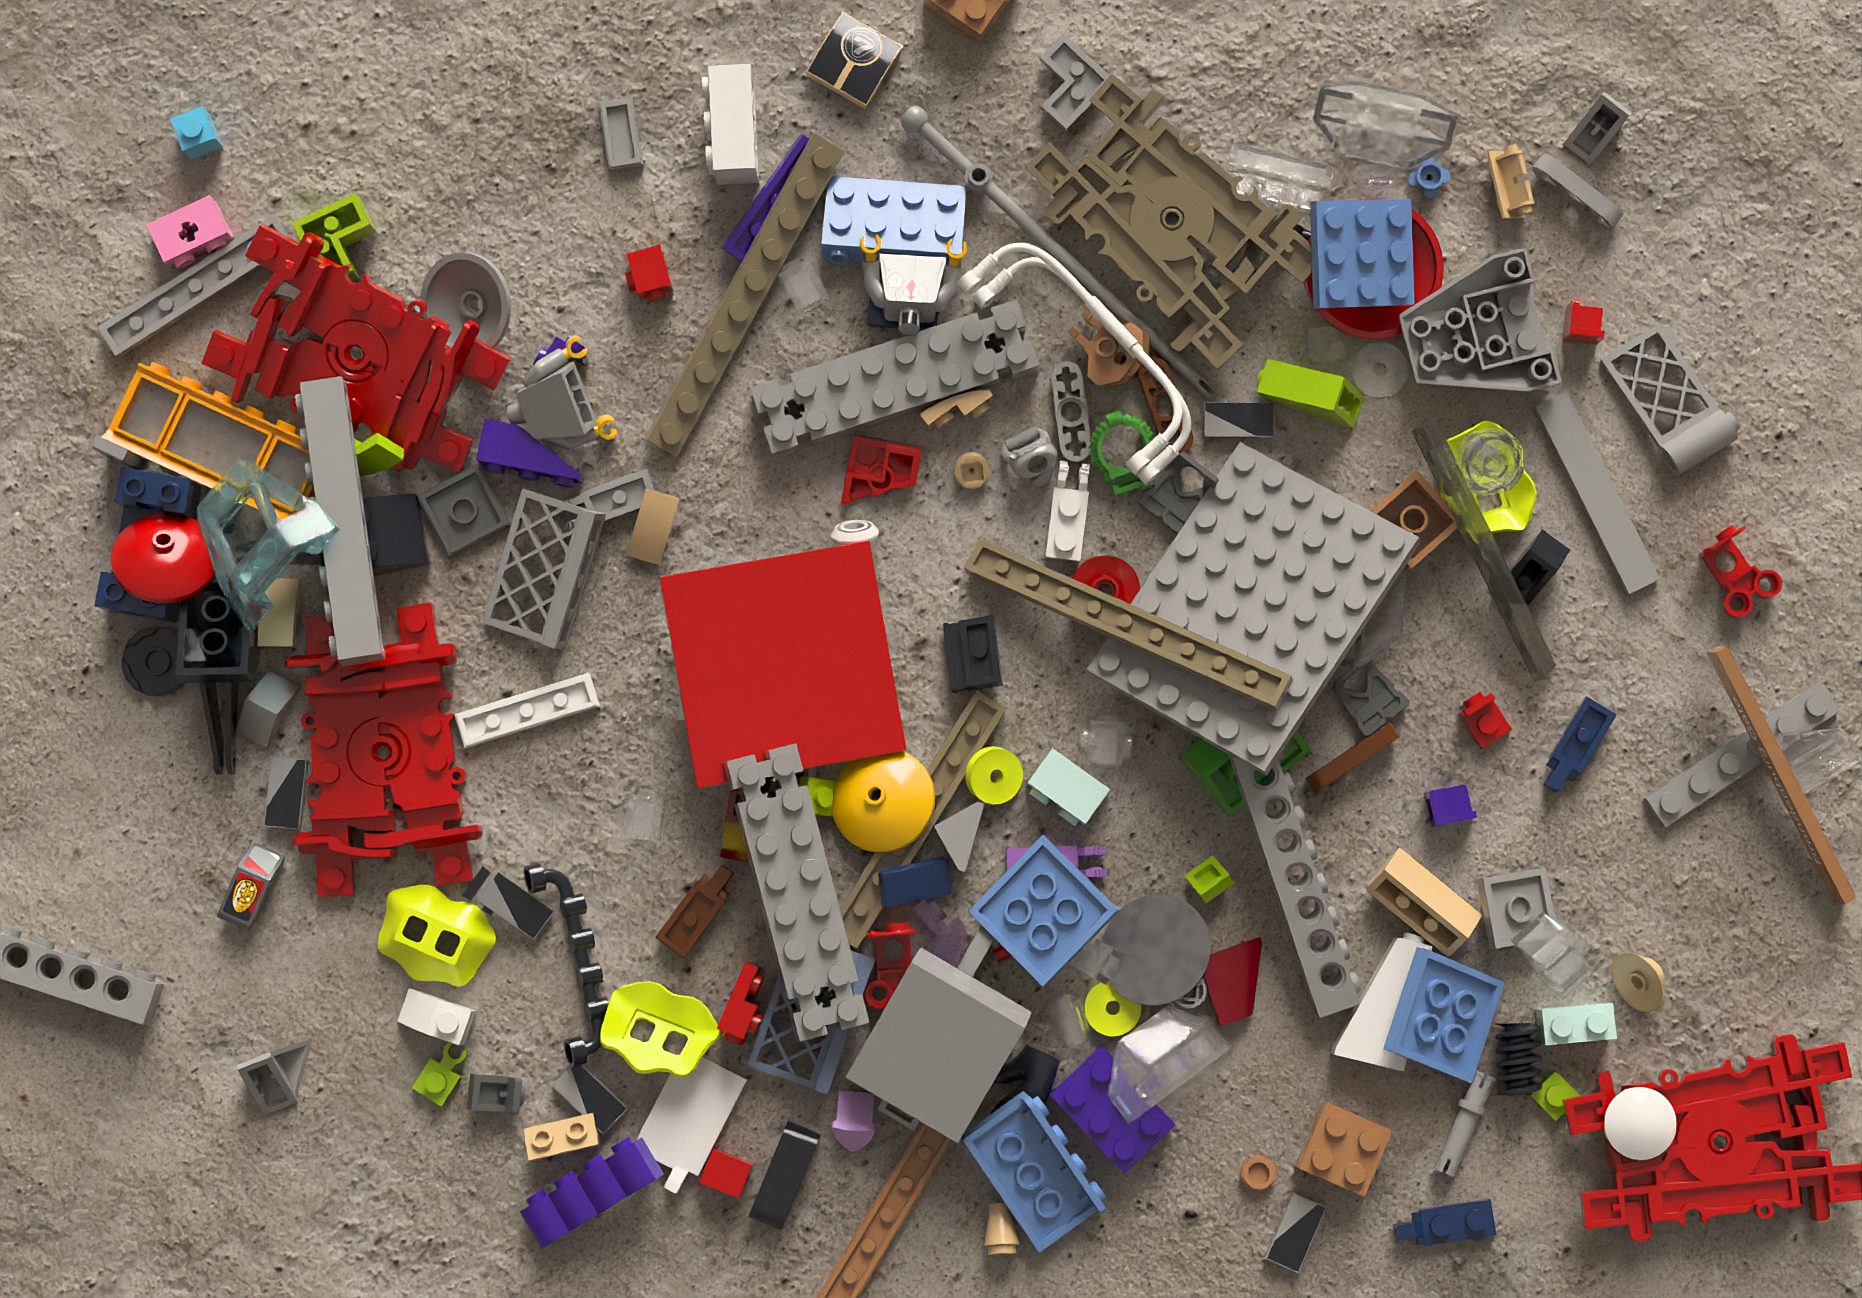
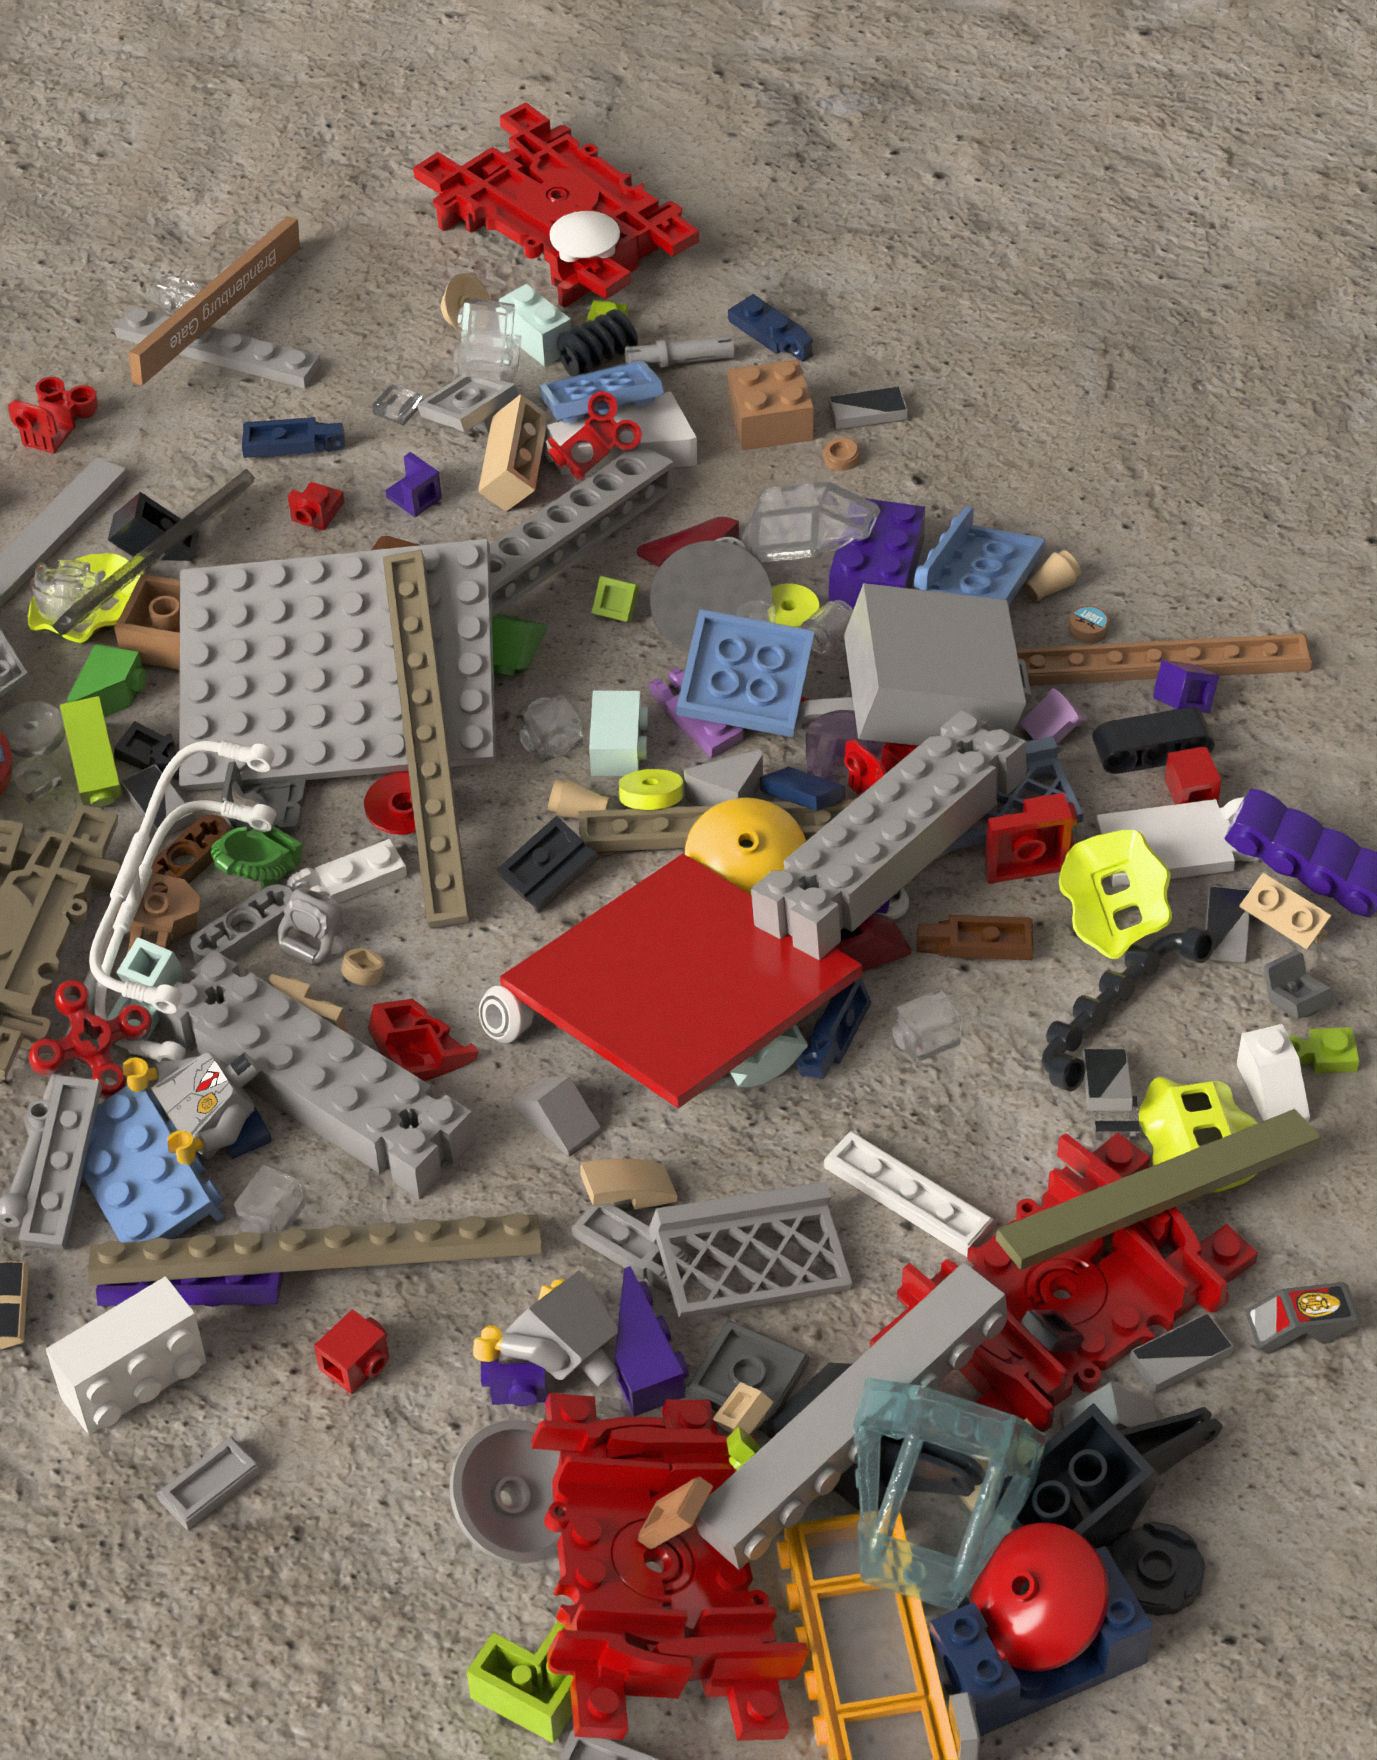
camera: 125 degrees left, 35 degrees down
(342, 710) = (1052, 1330): none -> black tile
(355, 369) = (674, 1513): none -> medium nougat tile
(386, 854) = (1157, 1189): none -> olive tile
(426, 479) = (743, 1408): none -> tan plate
(679, 747) = (835, 1030): none -> dark blue hinge
(754, 522) = (558, 1113): none -> light grey slope
(817, 1241) = (1185, 686): none -> dark purple panel
(927, 168) = (60, 1163): none -> light grey plate
(937, 1224) = (1088, 624): none -> medium nougat tile
(1015, 230) = (106, 1032): none -> red gear
(1022, 716) = (570, 797): none -> tan cone
(1042, 302) = (148, 966): none -> light aqua brick
(1296, 443) = (145, 747): none -> black slope
(1383, 445) = (111, 675): none -> bright green slope
(1383, 975) = (600, 432): none -> red piece
(1565, 857) = (396, 404): none -> clear tile

